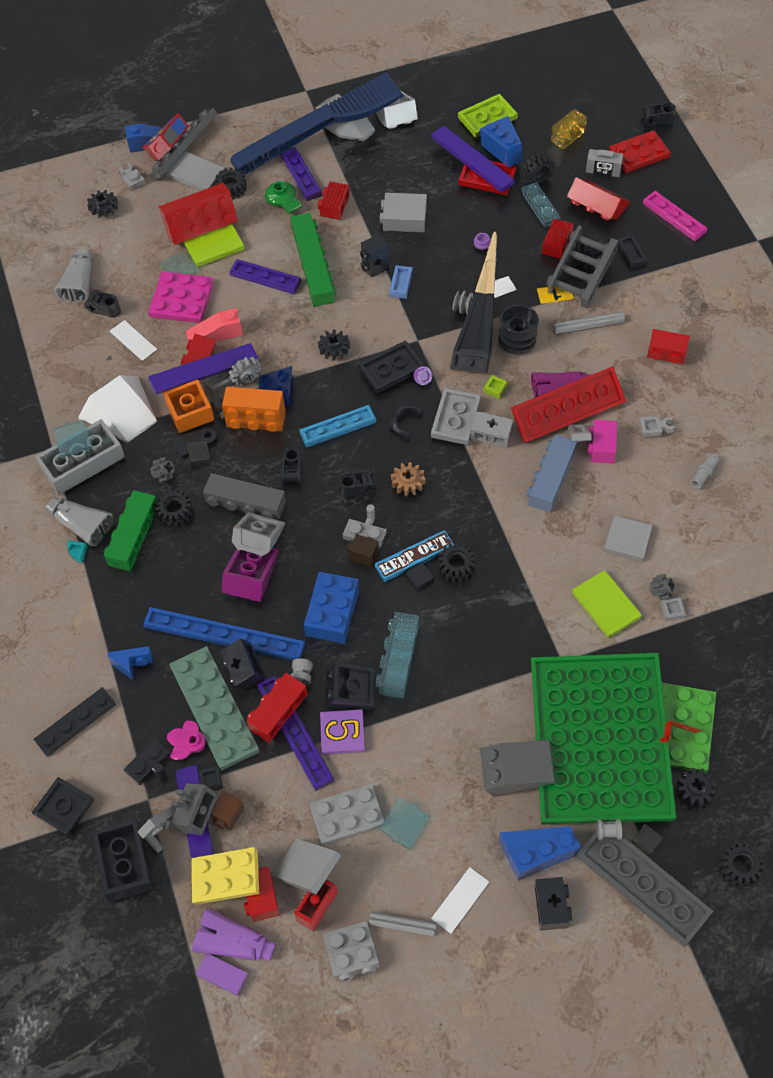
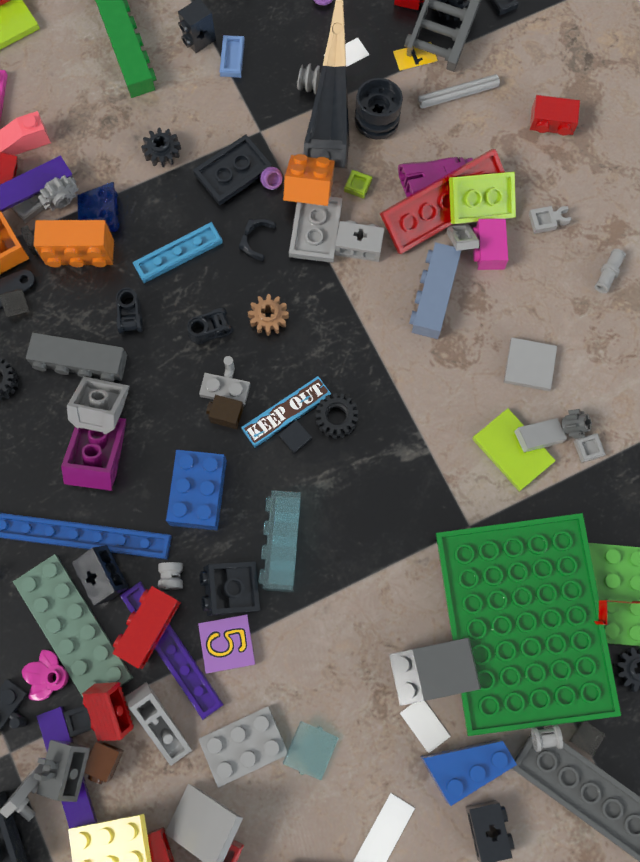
camera: 10 degrees left, 15 degrees up
(236, 768) = (107, 711): none -> red brick
(265, 276) = (68, 63): dark purple tile -> none
(277, 786) = (157, 723): none -> light grey slope
(454, 377) = (309, 180): none -> orange brick
(505, 814) = (425, 725): none -> white sticker
(599, 402) = (482, 197): none -> lime plate
(630, 593) = (540, 435): none -> light grey tile

